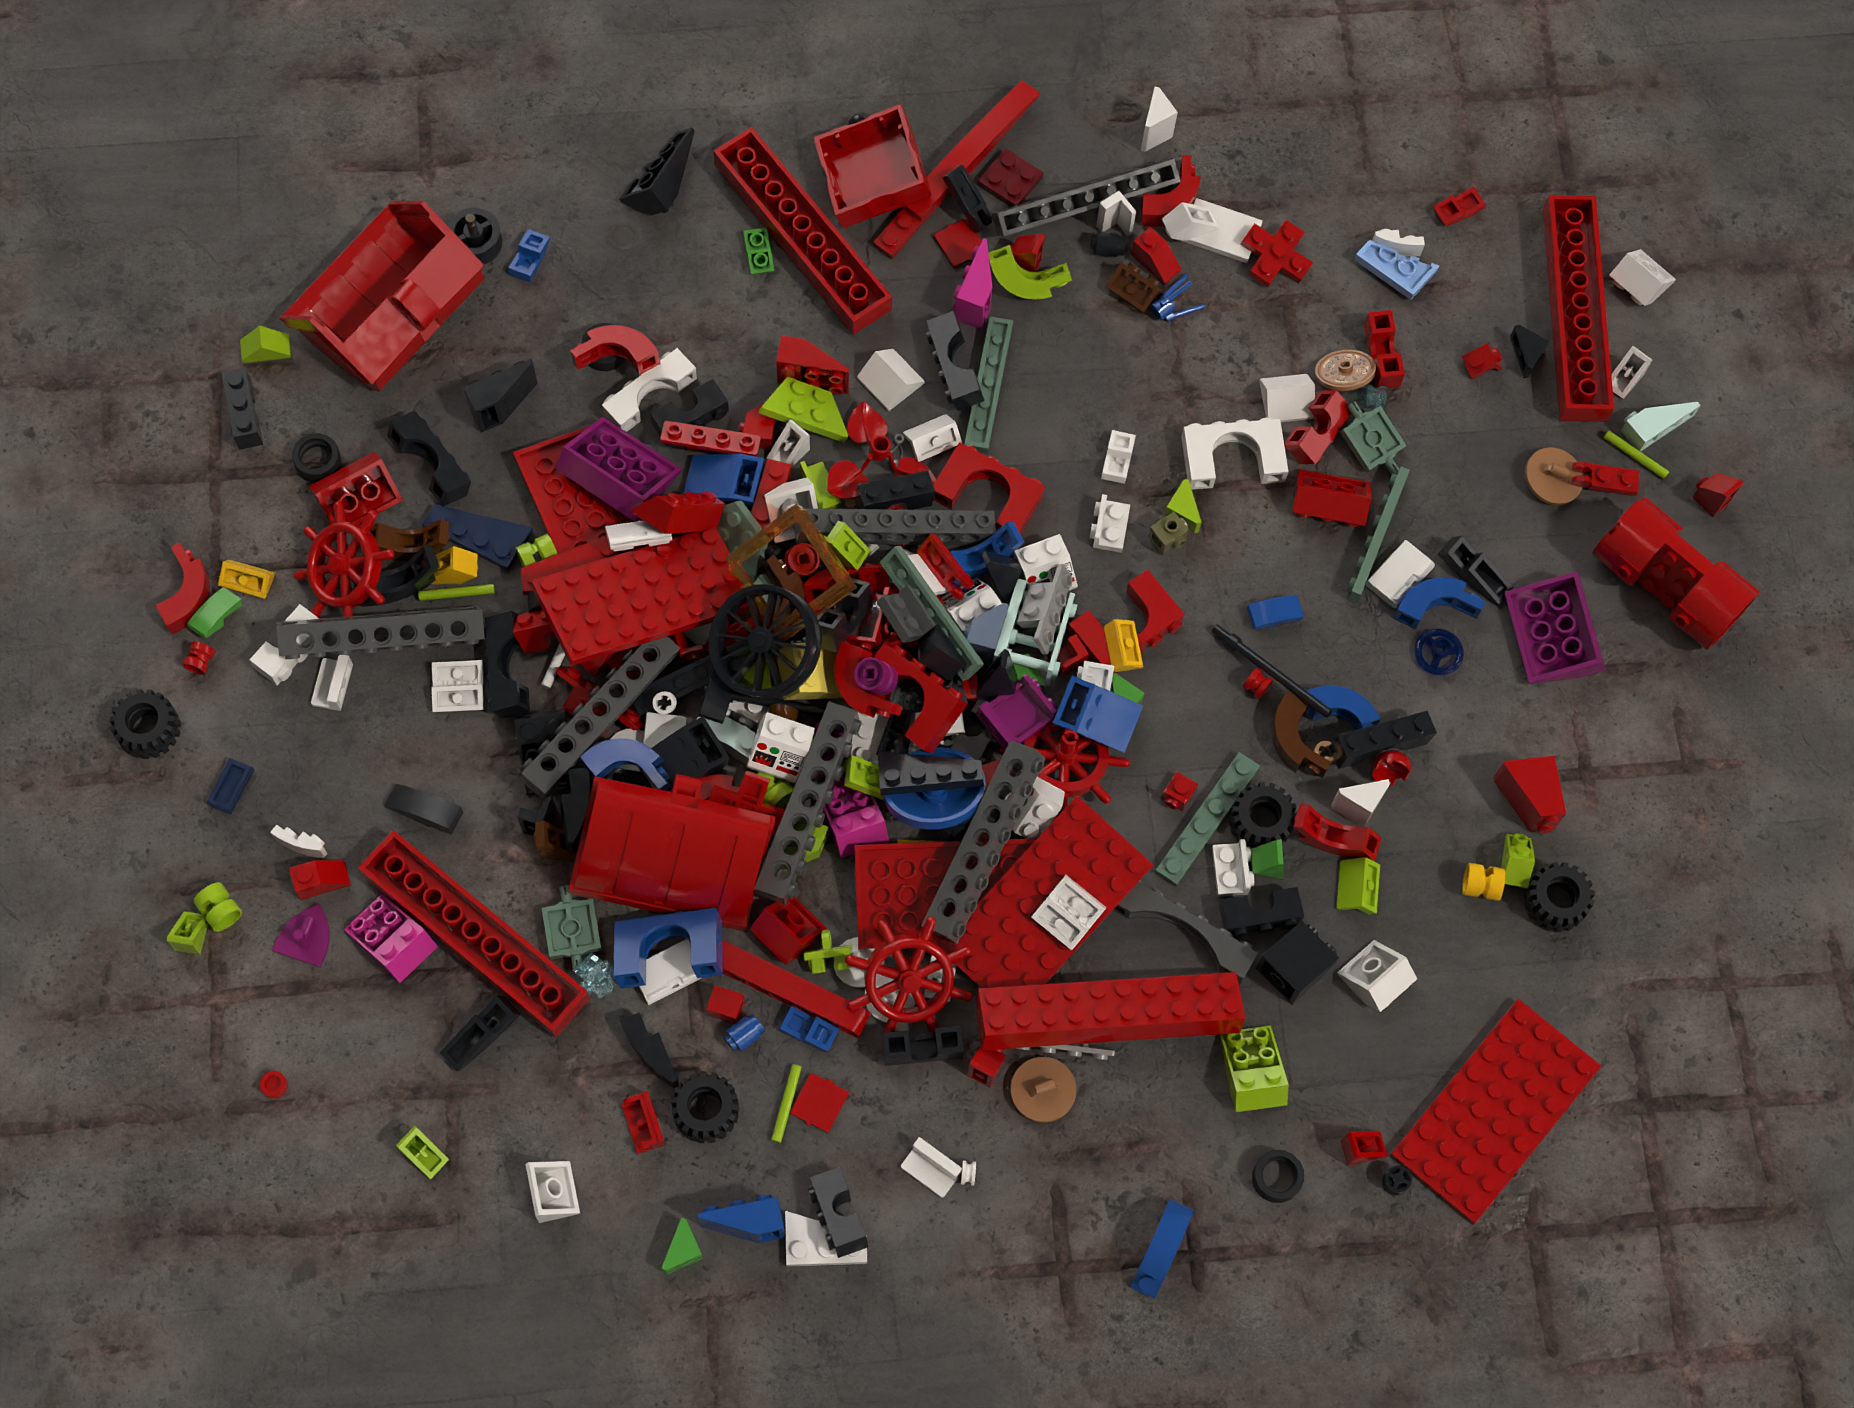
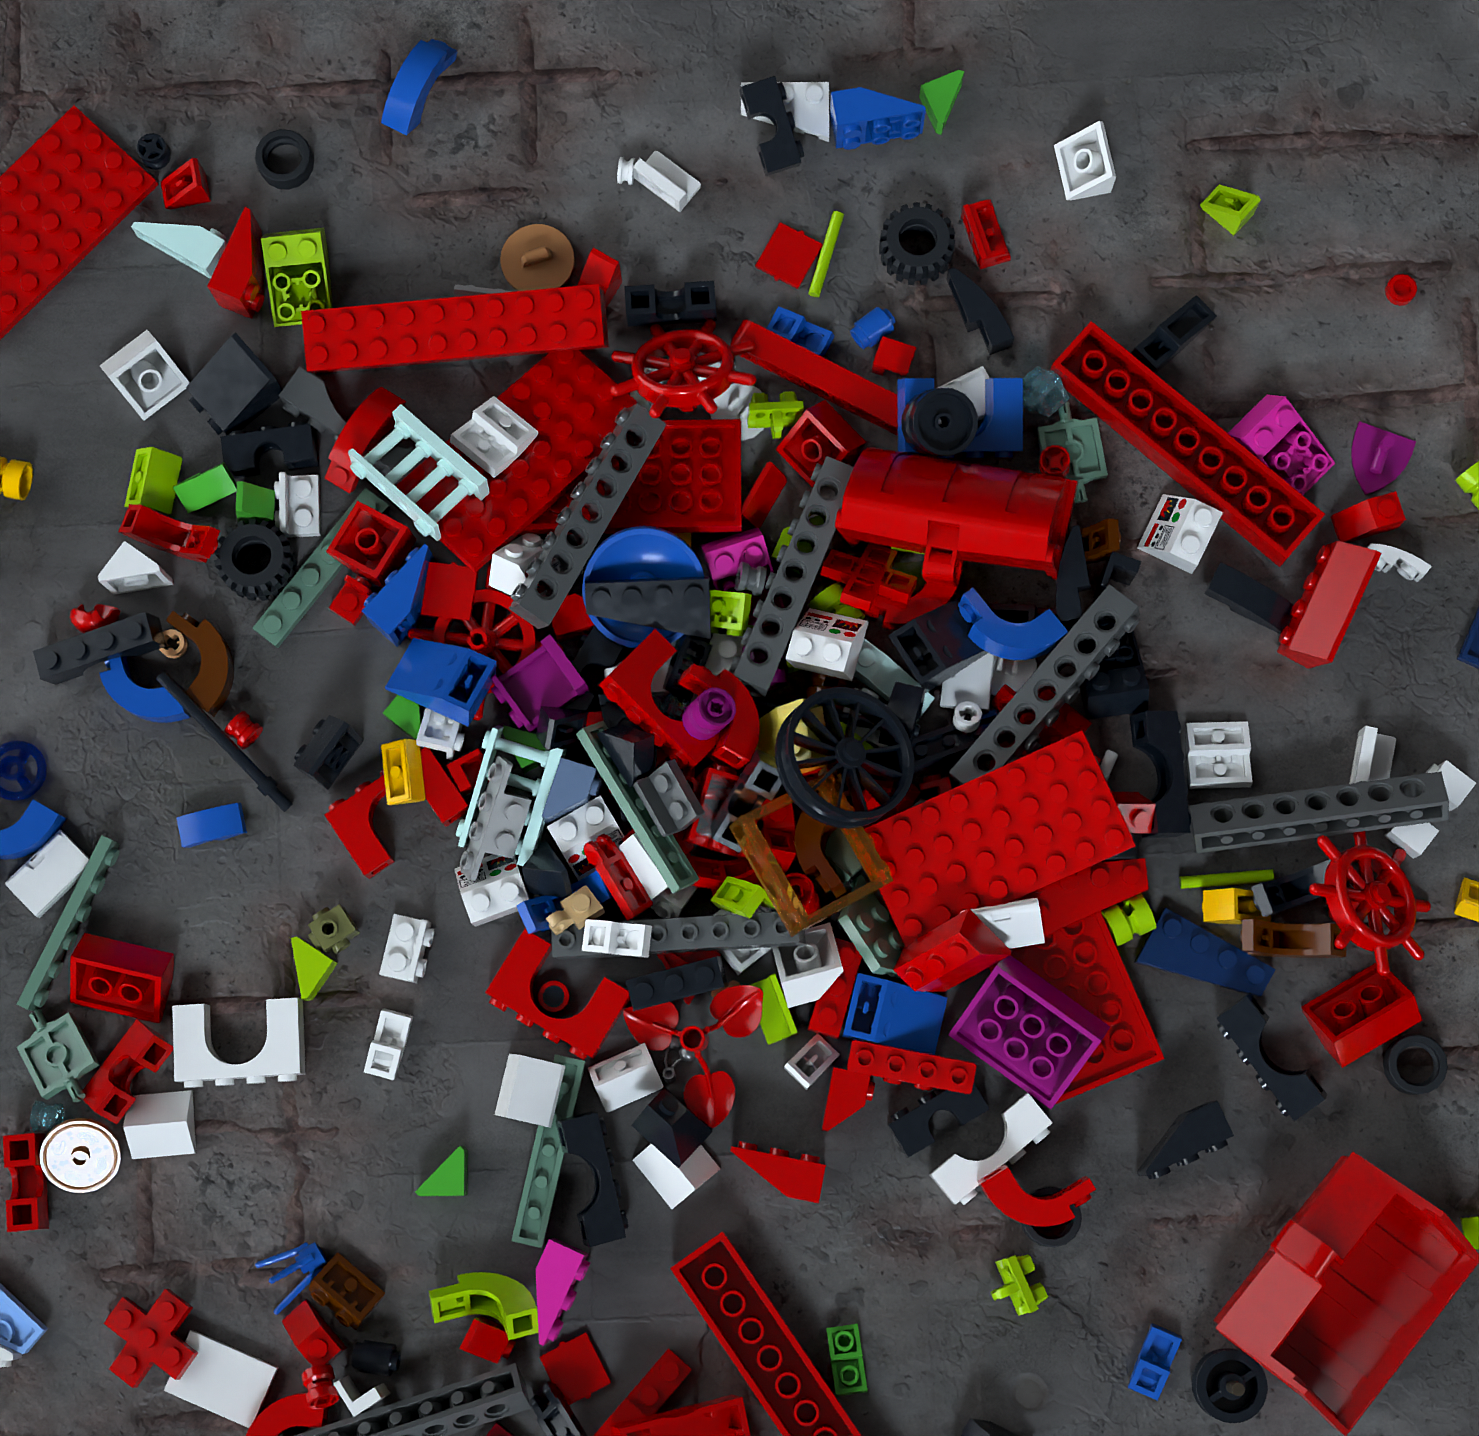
camera: 170 degrees left, 10 degrees up
(359, 799) = (1327, 603): none -> red slope
(481, 862) = (1180, 531): none -> white slope
(587, 904) = (1054, 457): none -> red wheel
(633, 299) = (1024, 1297): none -> lime hips
(686, 921) = (957, 423): none -> black wheel
(806, 406) = (788, 1114): lime wing -> none
(837, 886) = (763, 495): none -> red slope
(845, 799) = (750, 578): none -> dark grey wheel
(894, 397) = (671, 1127): none -> black slope
(943, 516) = (617, 938): none -> white slope
(975, 541) = (577, 908): none -> tan plate
(991, 493) = (554, 996): none -> tile
(1006, 421) = (530, 1090): none -> white slope
(1064, 361) = (449, 1178): none -> bright green slope
(1098, 788) = (449, 591): none -> red piece
(1125, 896) = (426, 445): none -> light aqua fence
(1142, 774) = (400, 600): none -> blue slope
(1145, 209) = (320, 1386): none -> red wheel
(1166, 830) = (371, 544): none -> red slope
(1180, 920) = (361, 433): none -> red arch
(1187, 661) = (328, 751): none -> black slope
(1189, 221) = (262, 1382): white slope -> none
(1302, 1057) = (238, 276): none -> red slope
(1310, 874) = (206, 487): none -> bright green slope
(1352, 1091) = (186, 243): none -> light aqua slope

